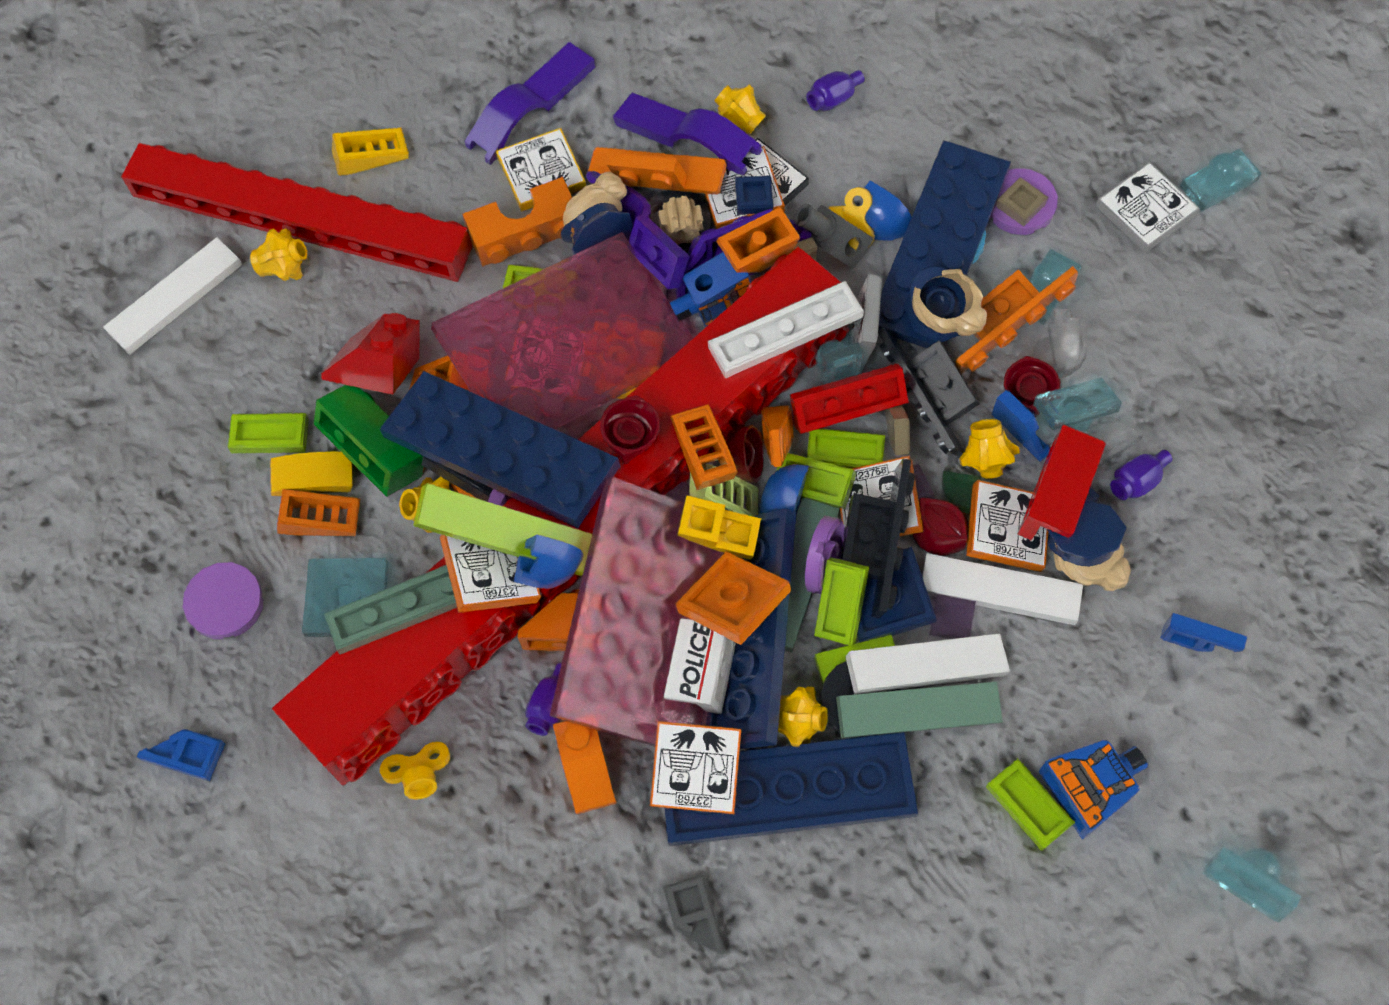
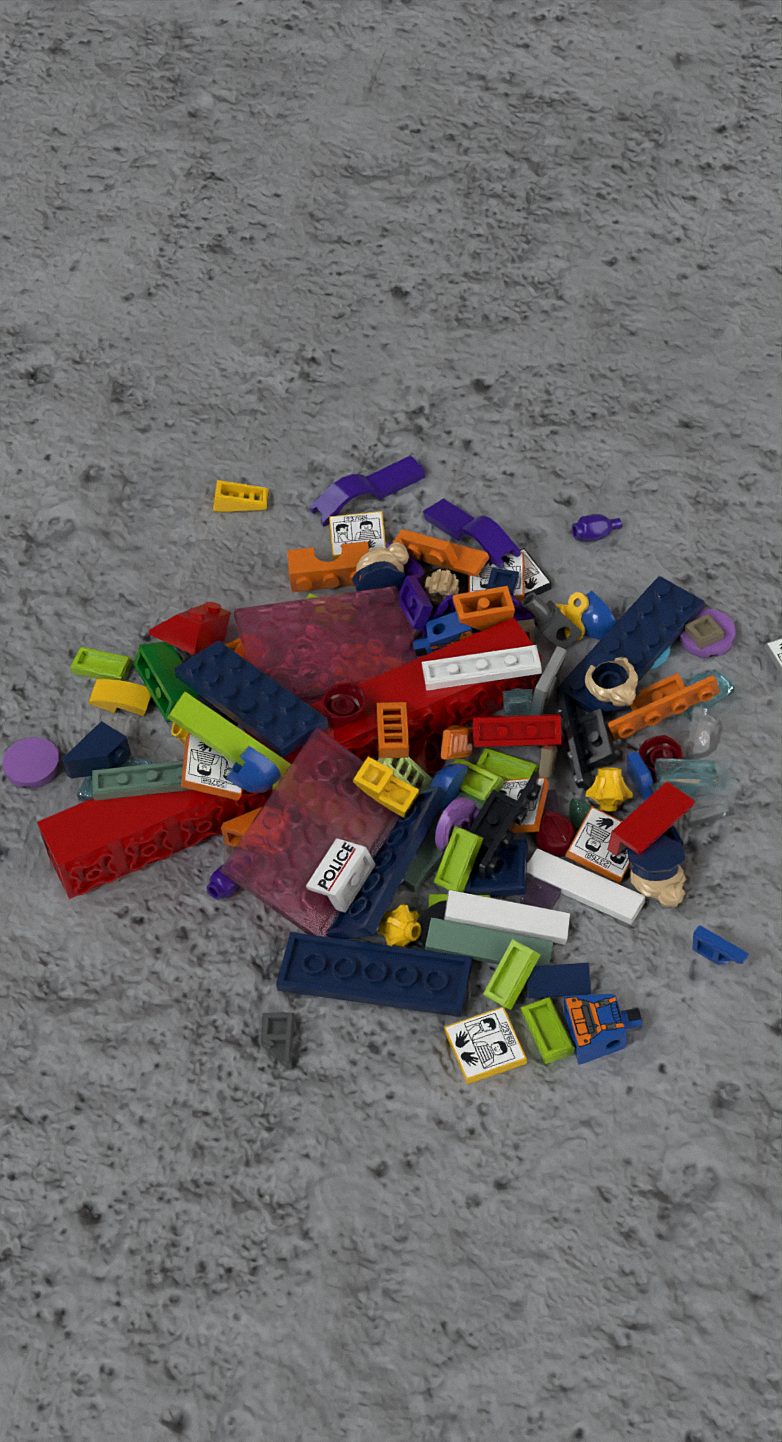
camera: 20 degrees right, 15 degrees down
(172, 296) = (69, 563): white tile -> none
(279, 256) = (150, 551): yellow rock -> none
(305, 500) = (110, 712): orange slope -> none
(307, 212) = (176, 527): red brick -> none
(313, 569) = (96, 751): none -> dark blue slope
(416, 770) = (122, 901): yellow piece -> none
(584, 766) = (237, 921): orange slope -> none
(695, 767) = (312, 937): white tile -> none
(733, 597) = (377, 831): orange tile -> none
(740, 107) = (517, 524): yellow rock -> none
(961, 849) = (485, 1045): none -> tile
(964, 744) = (511, 974): none -> lime tile
(1020, 733) = (559, 980): none -> dark blue tile
(1139, 475) = (719, 835): dark purple plant -> none
(1253, 880) = (690, 1117): clear light blue tile -> none

